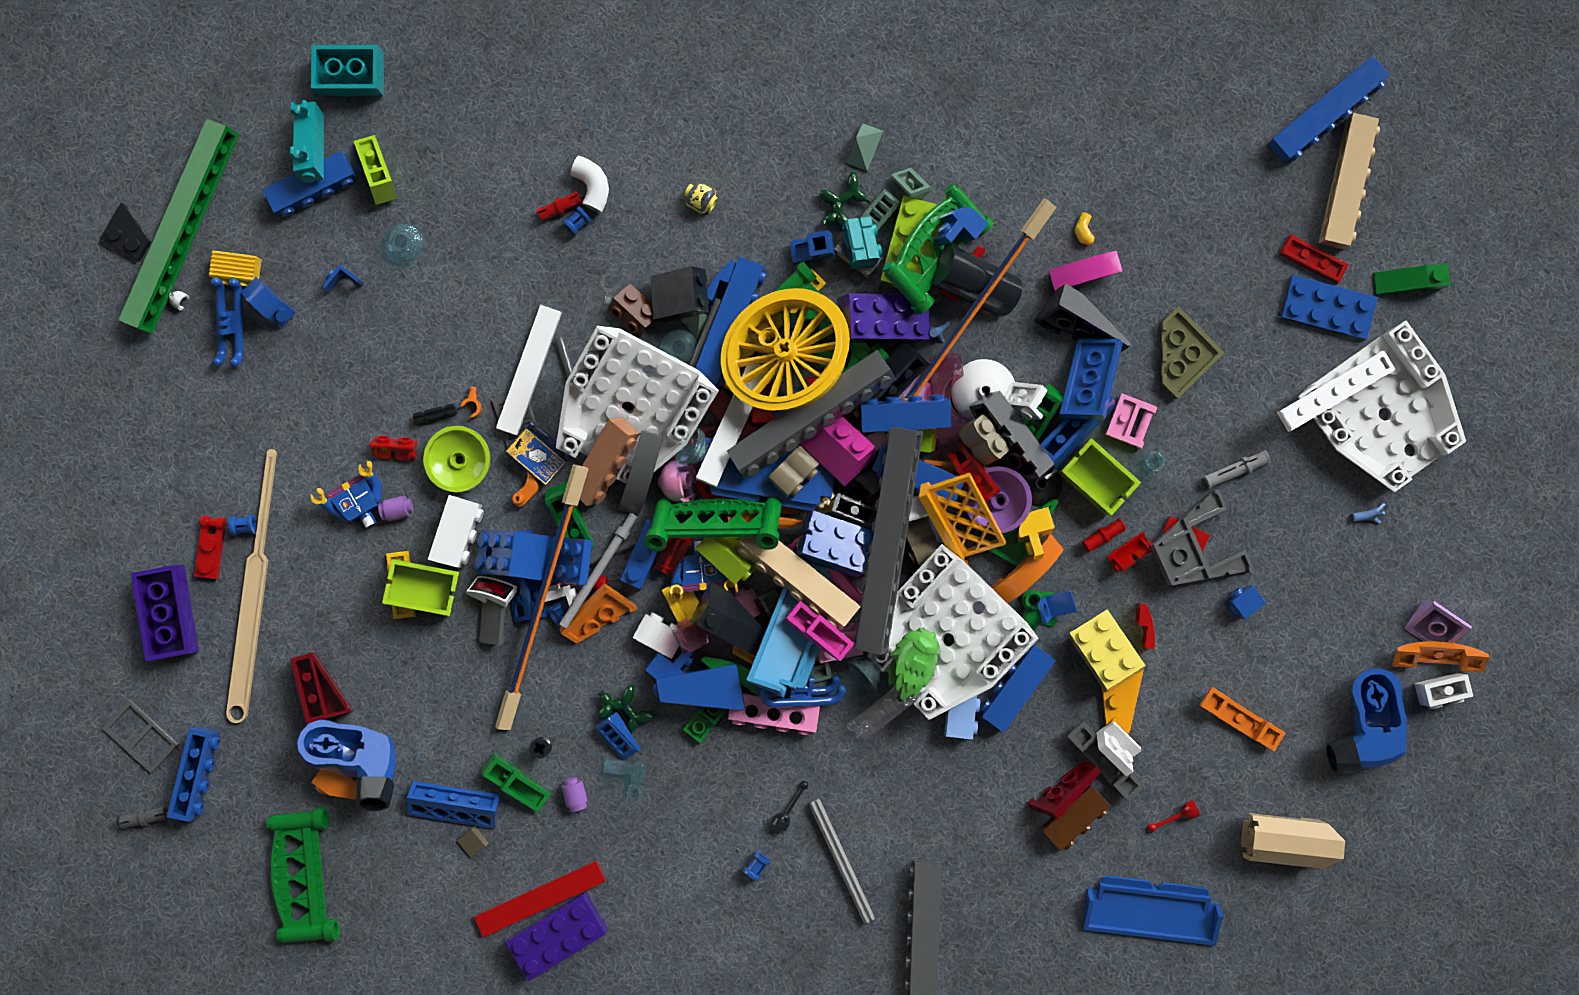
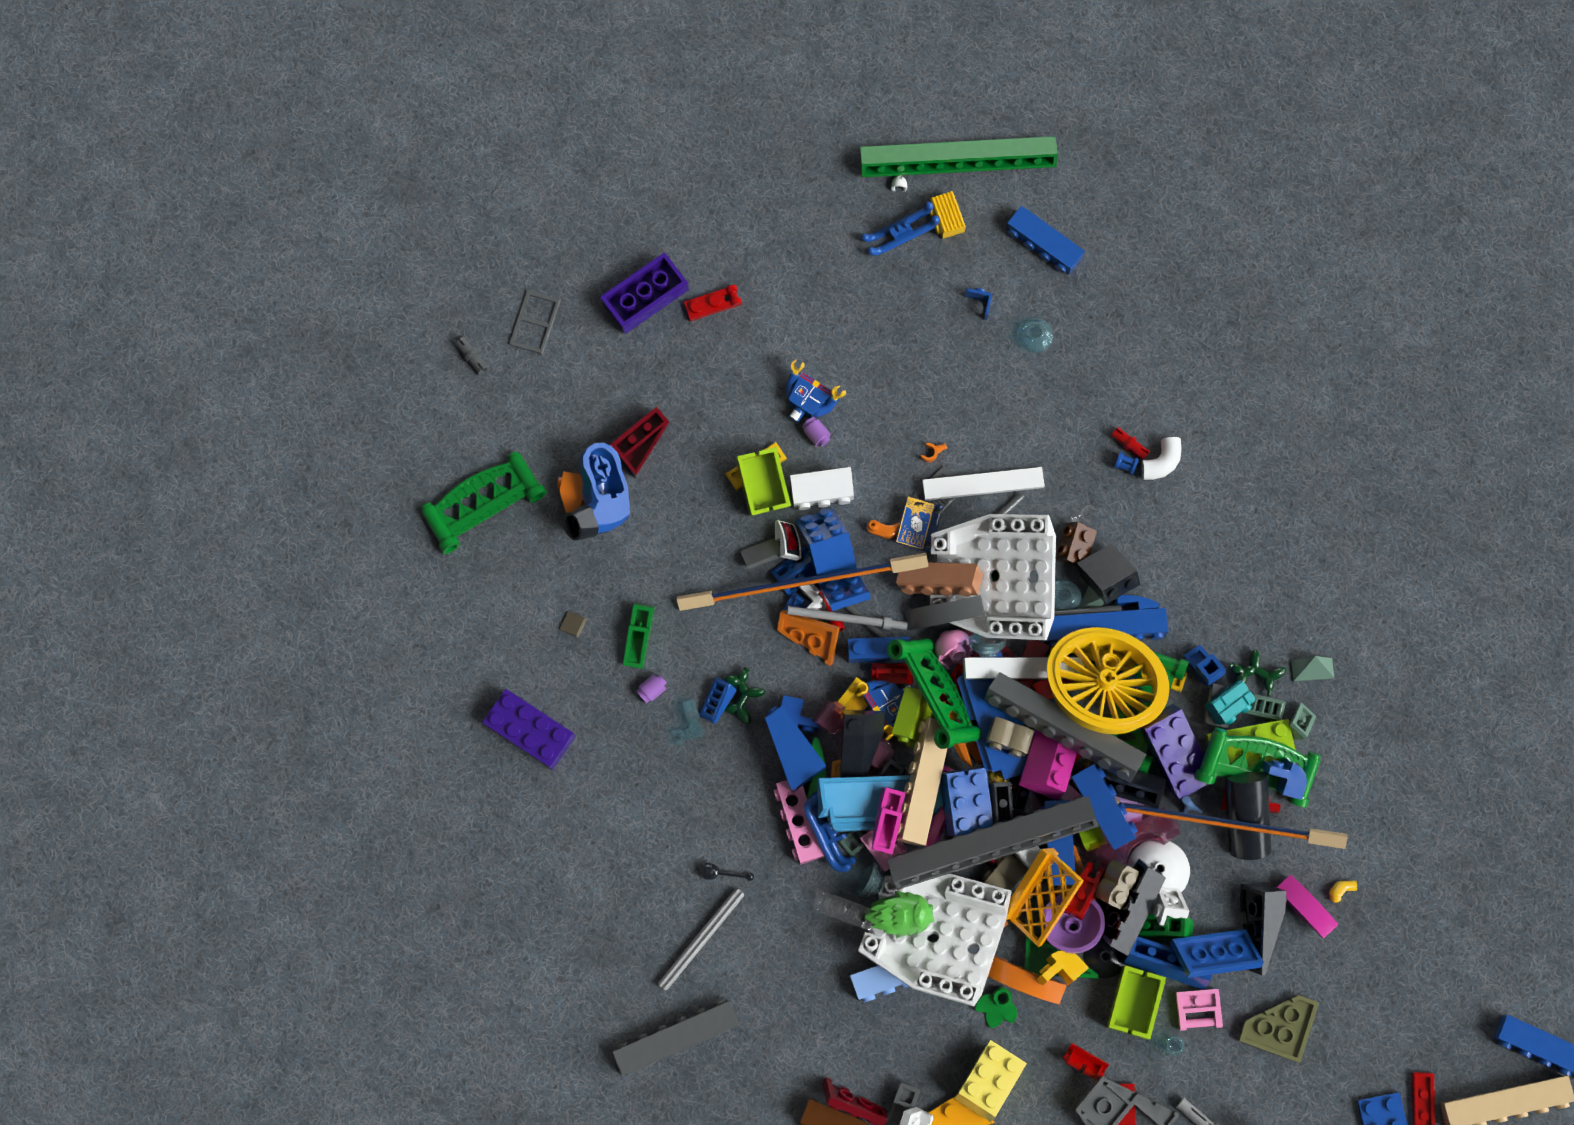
camera: 70 degrees right, 10 degrees down
(126, 233) = (931, 119): black wing -> none
(193, 774) = (526, 377): blue brick -> none
(242, 525) = (748, 324): blue bush -> none
(251, 604) = (683, 356): tan piece -> none
(267, 302) = (932, 253): blue brick -> none
(308, 142) = (1078, 222): teal brick -> none
(347, 70) = (1152, 224): teal brick -> none
(375, 169) = (1083, 284): lime slope -> none
(383, 446) = (869, 413): red hinge -> none
(435, 414) = (908, 426): black axle -> none
(443, 451) = (881, 447): lime dish -> none
(453, 801) = (599, 591): blue fence -> none
(539, 754) = (676, 635): black bush -> none
(539, 898) = (552, 701): red tile -> none
(576, 526) = (876, 581): green slope -> none
(657, 635) = (816, 692): white brick -> none
(700, 197) = (1198, 554): head -> none
(703, 722) = (763, 766): green slope -> none
(756, 866) = (663, 868): blue bush -> none
(1017, 688) = (920, 1019): blue brick -> none
(1056, 605) = (1007, 1018): blue bracket -> none
(1103, 535) = (1088, 1033): red pin -> none
(1144, 618) = (1033, 1103): red slope -> none

